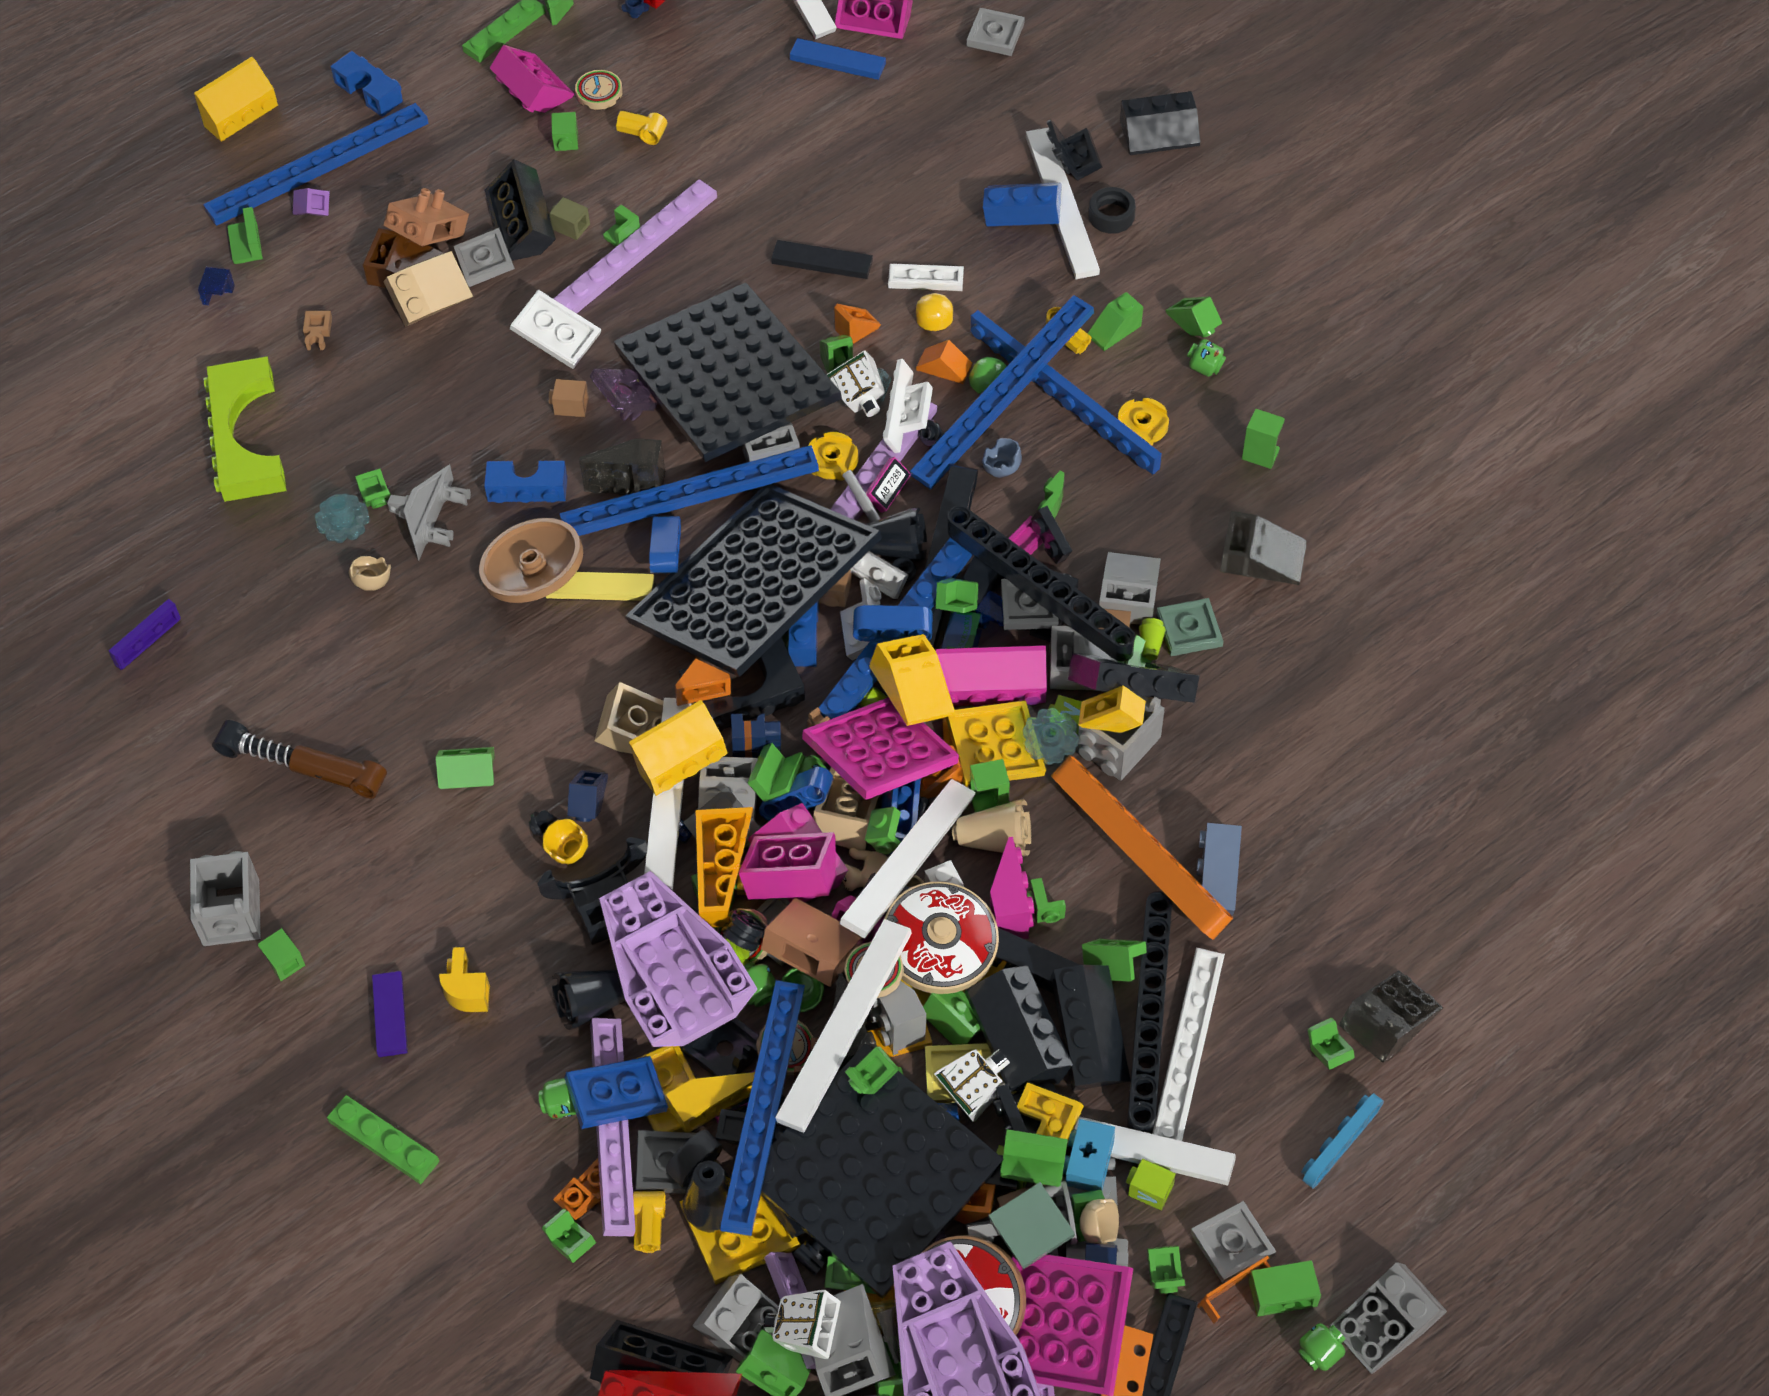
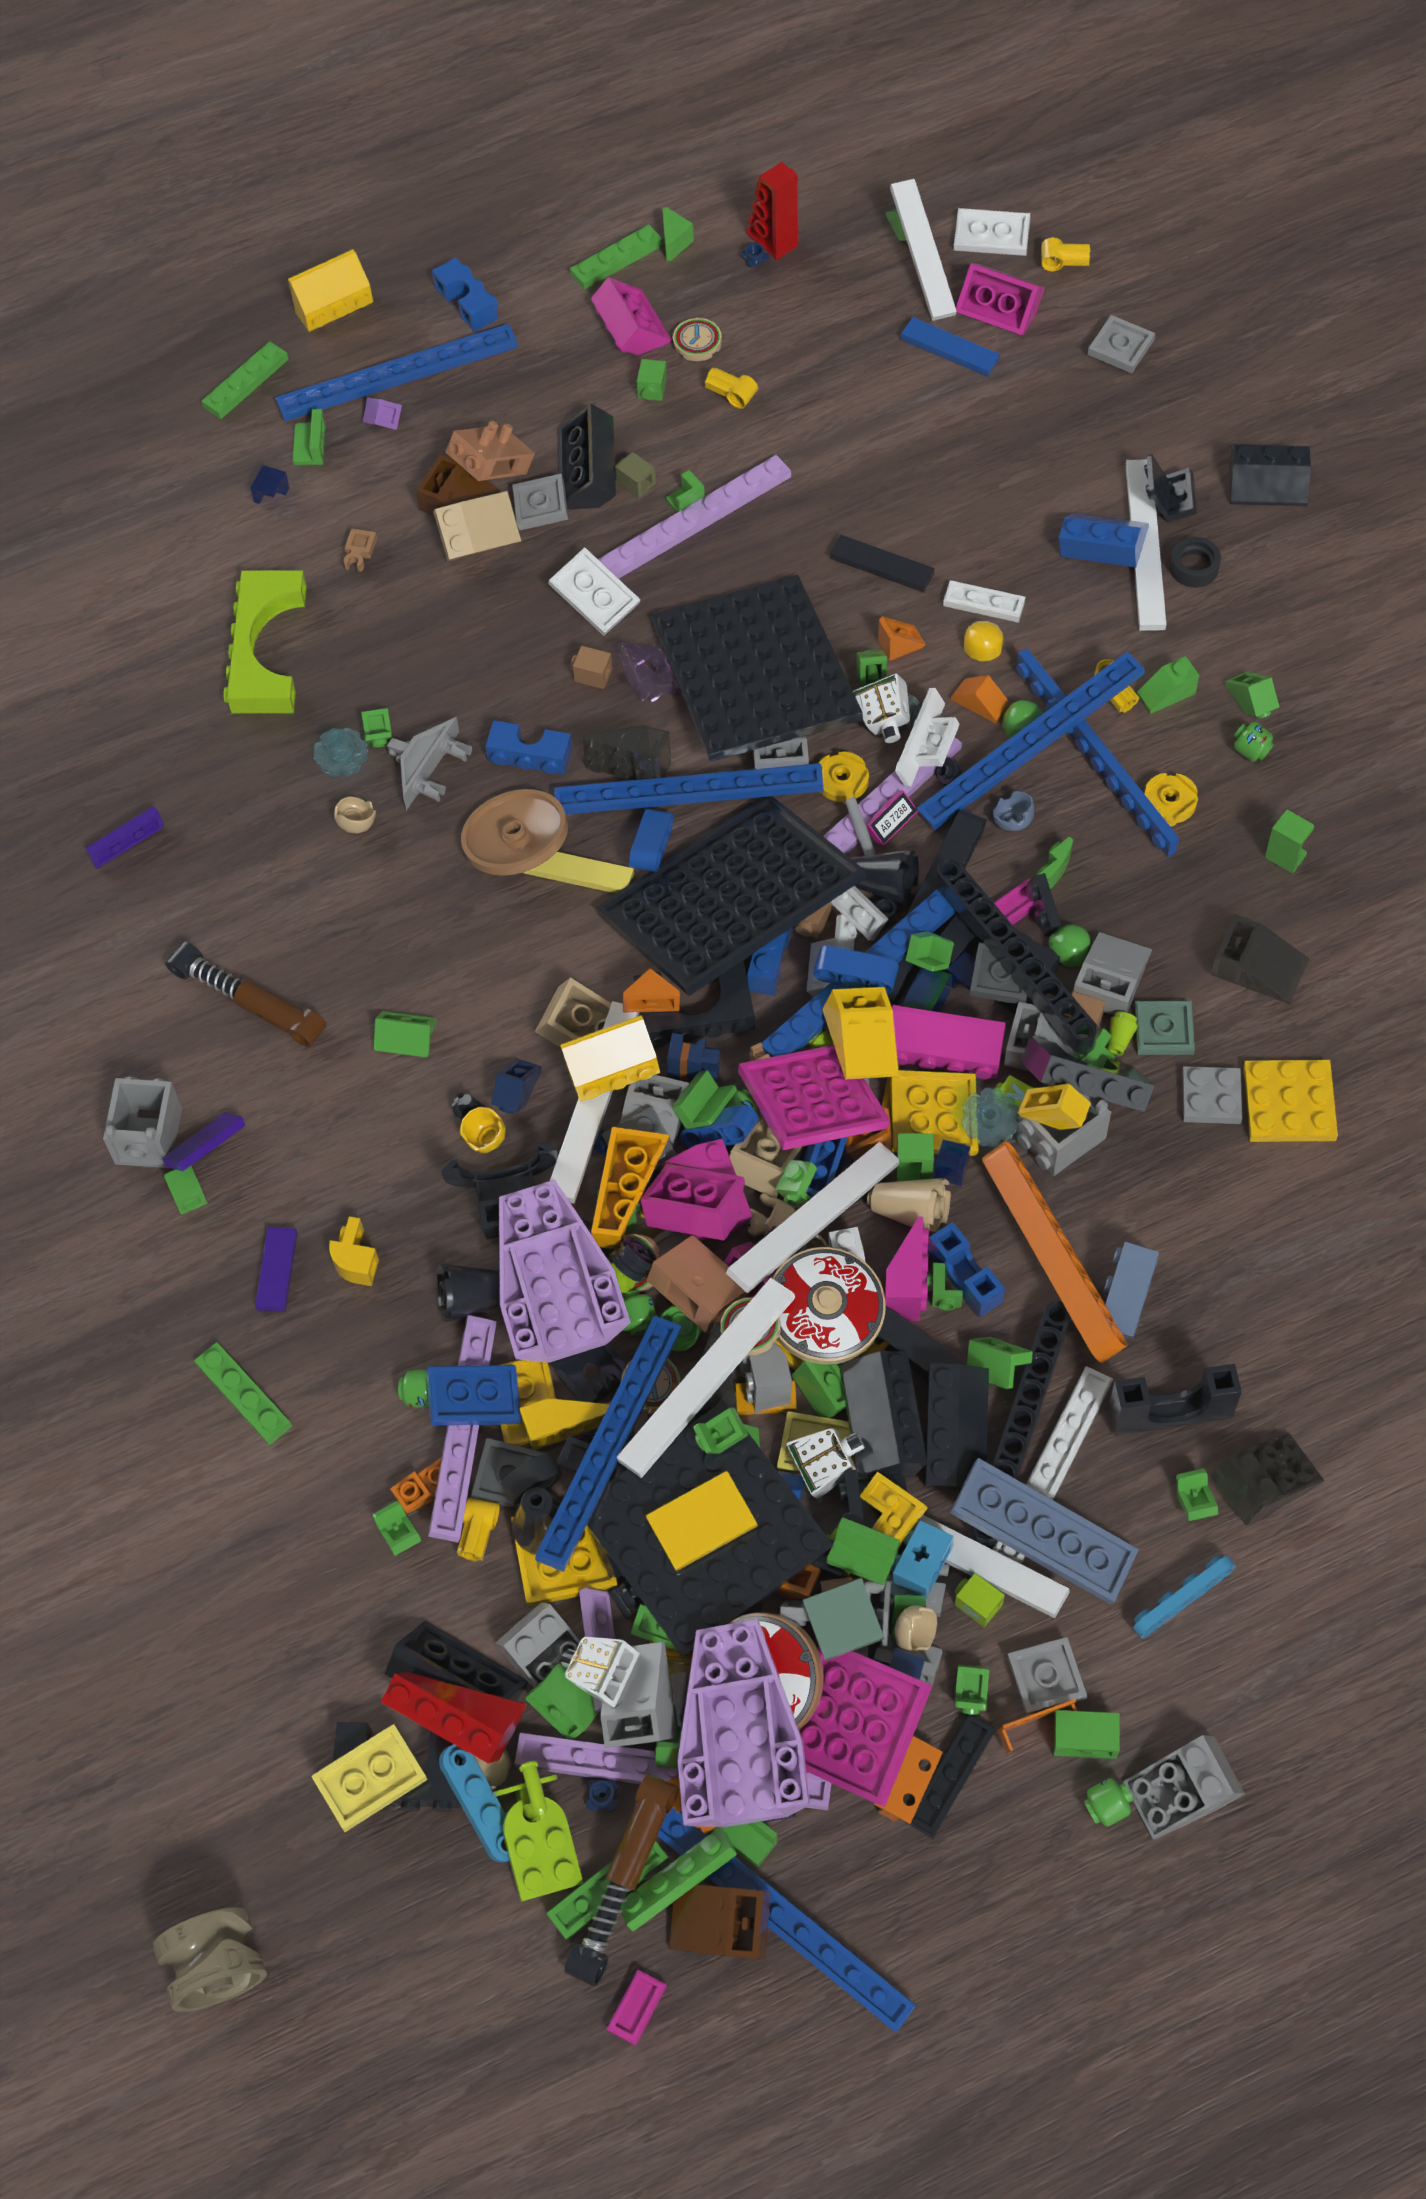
camera: 15 degrees right, 5 degrees up
(168, 194) = (245, 380): none -> bright green plate
(290, 905) = (203, 1141): none -> dark purple tile
(872, 1161) = (701, 1521): none -> yellow tile
(1024, 784) = (952, 1162): none -> clear blue panel
(1081, 894) = (979, 1286): none -> blue arch
(1086, 567) = (1071, 944): none -> bright green hair
(1198, 1106) = (1044, 1531): none -> sand blue plate
(1249, 679) = (1211, 1095): none -> light grey plate
(1256, 976) = (1210, 1400): none -> black arch
(1322, 670) = (1290, 1100): none -> yellow plate

